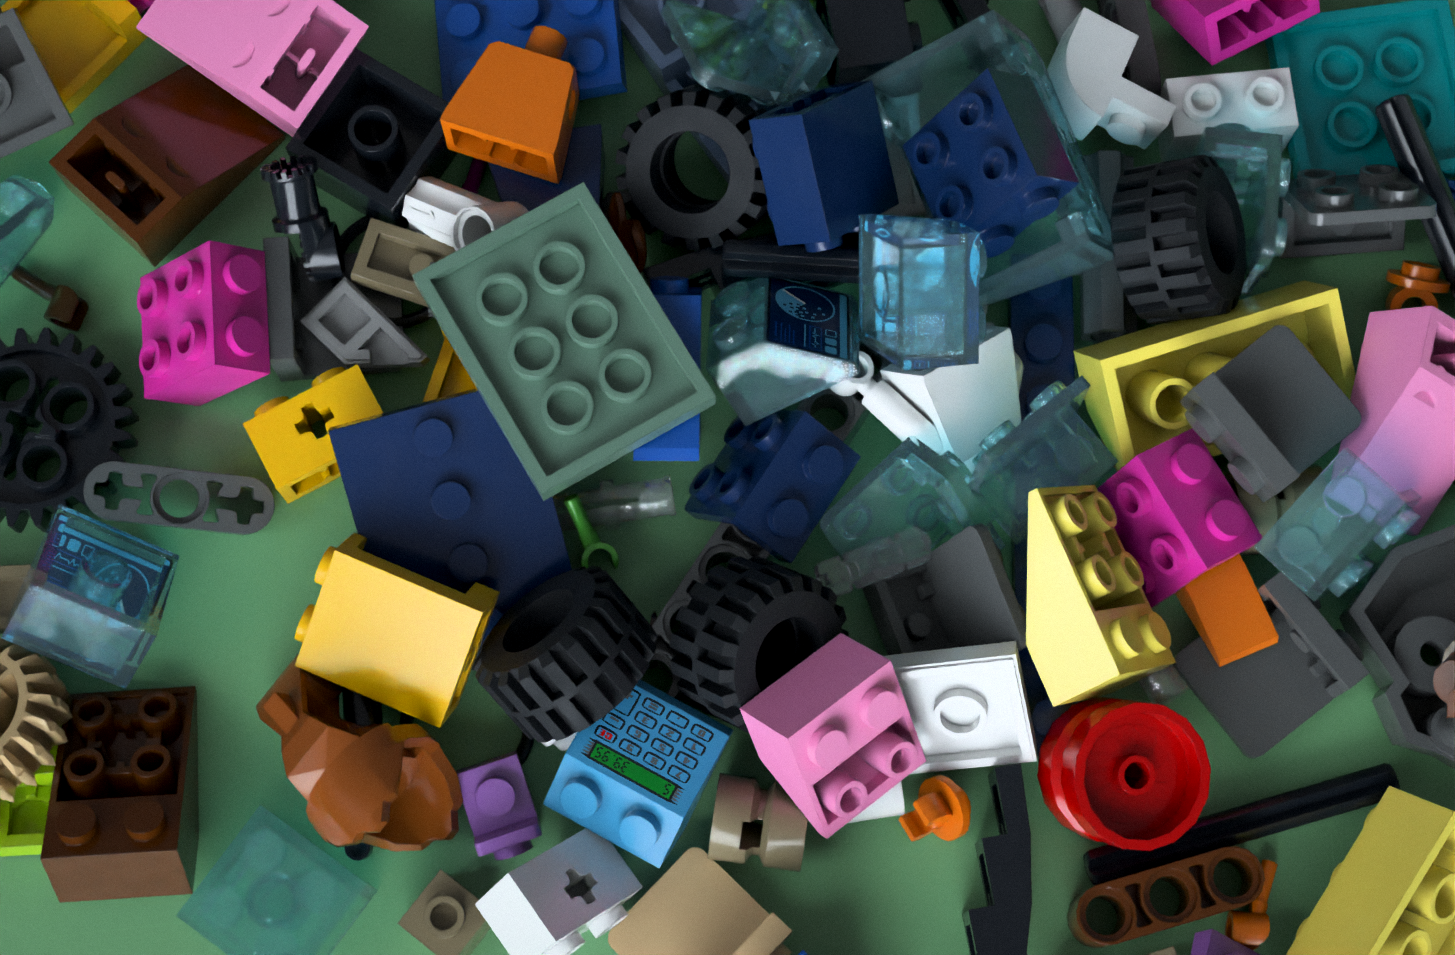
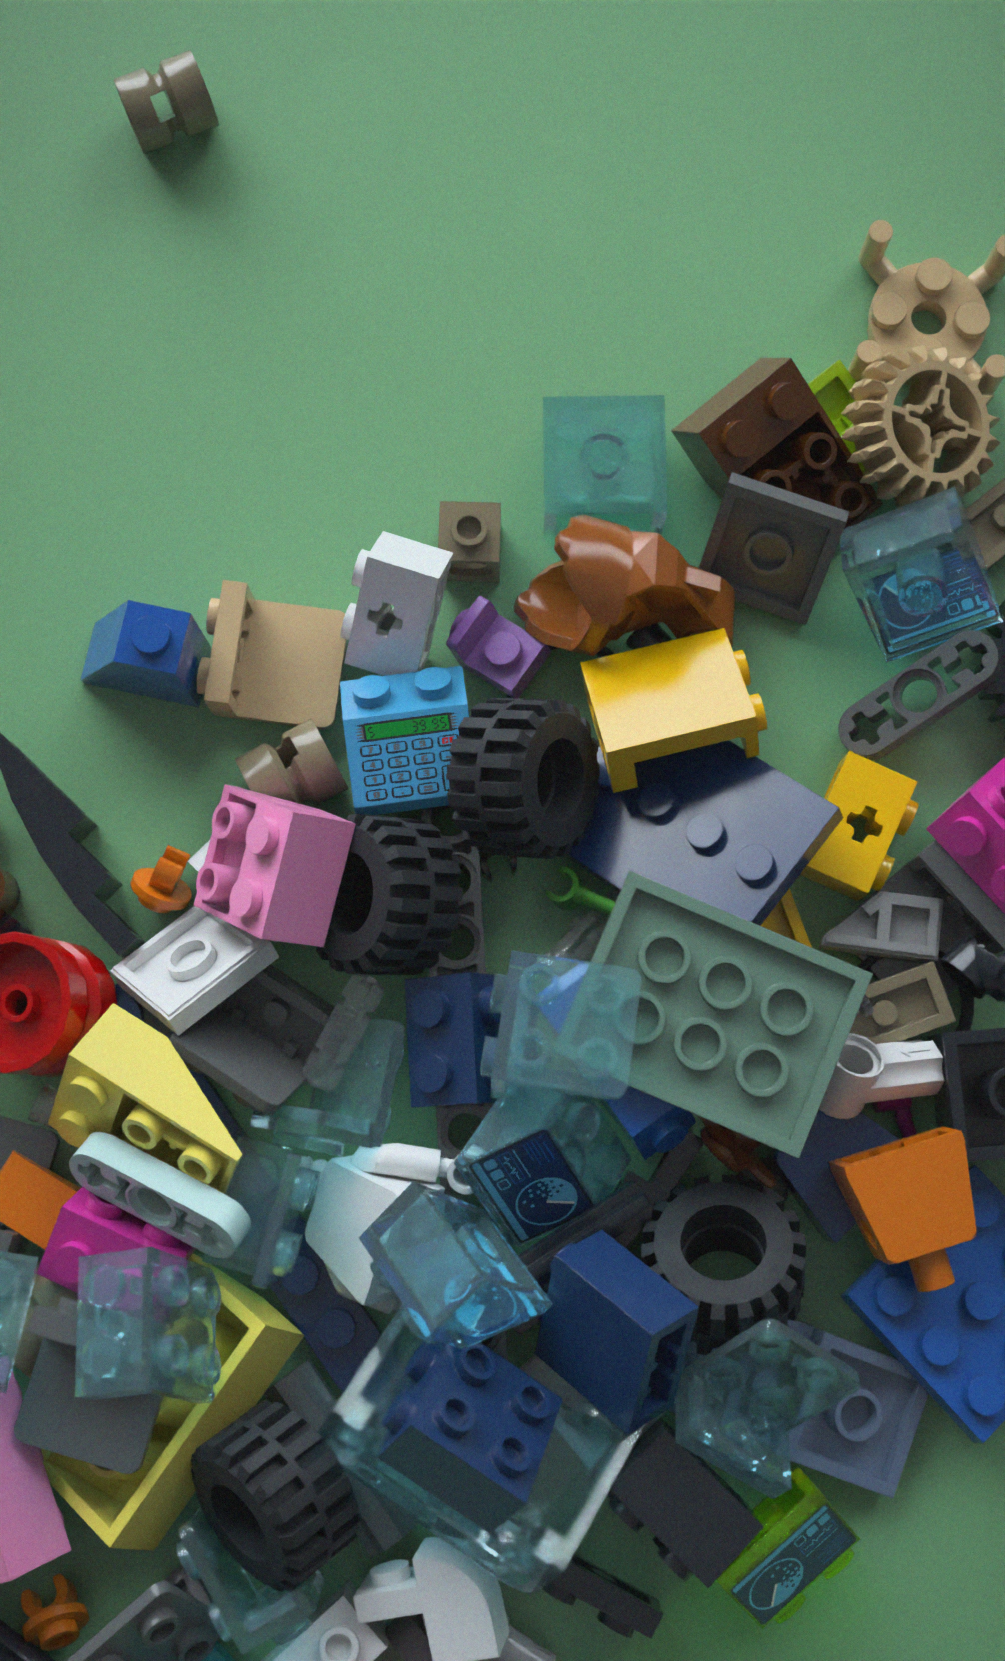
camera: 145 degrees right, 5 degrees up
(195, 713) = (773, 546): none -> dark grey plate
(694, 408) = (562, 1027): none -> clear light blue bracket
(1118, 520) = (160, 1195): none -> light aqua beam
(1201, 411) = (146, 1326): none -> clear light blue bracket

